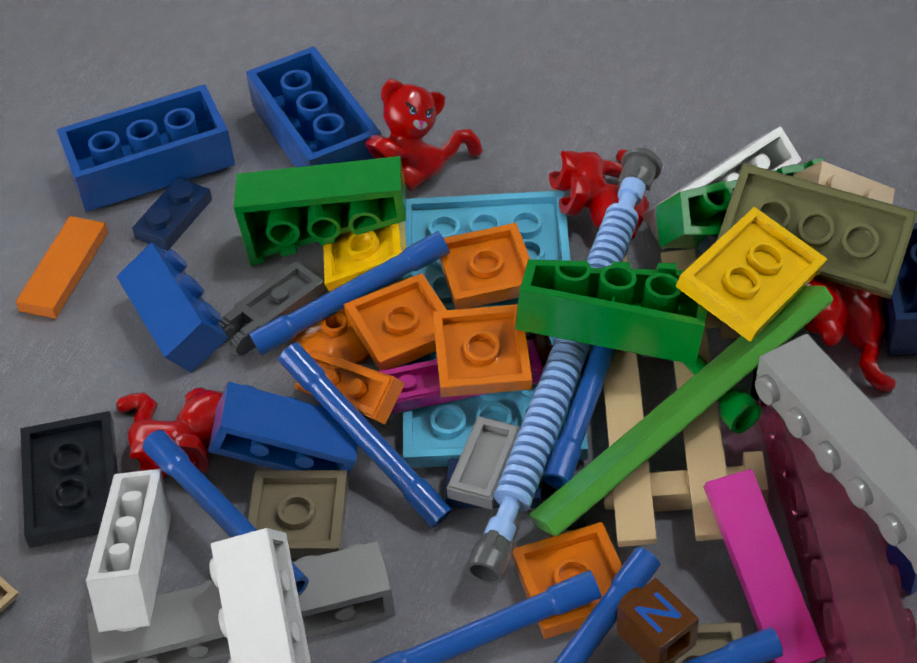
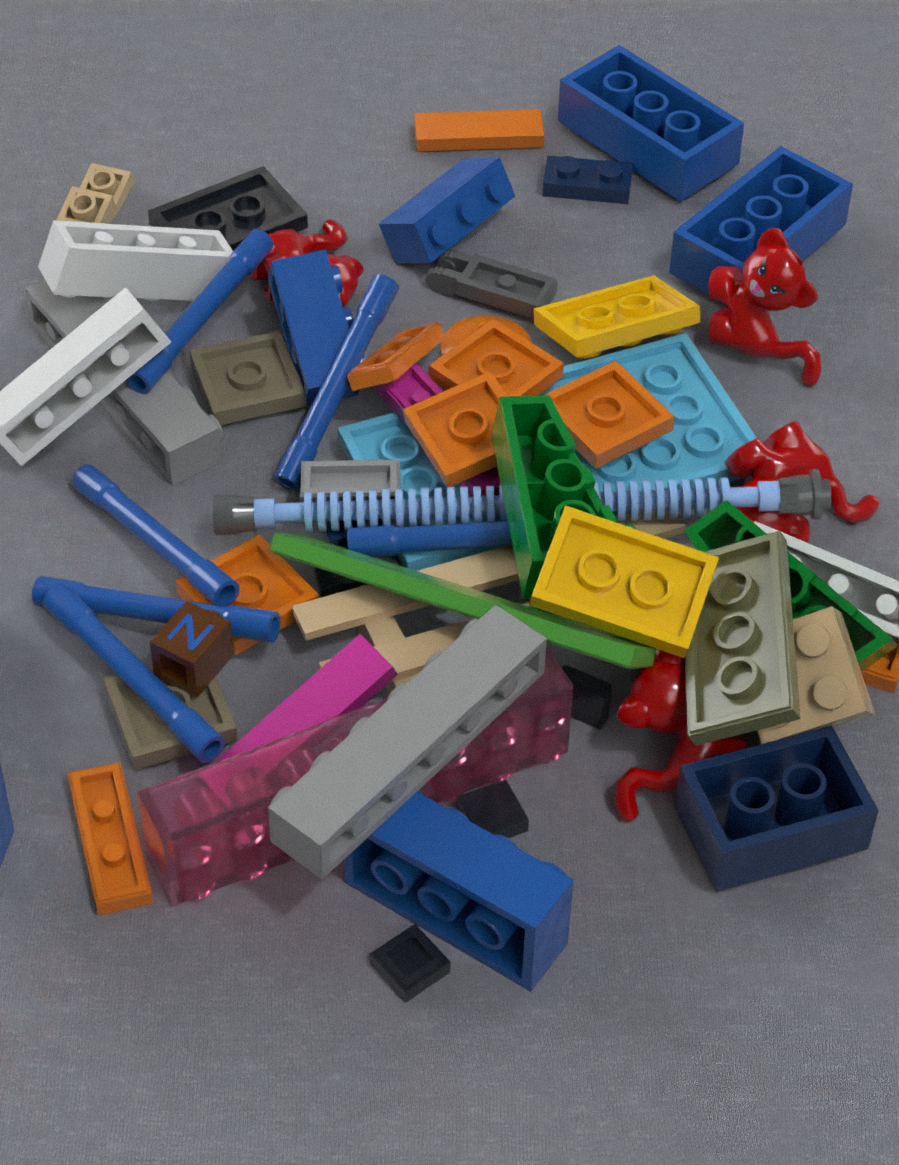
camera: 65 degrees right, 0 degrees up
(288, 326) = (573, 347): blue piece -> none
(316, 203) = (614, 254): green wedge -> none

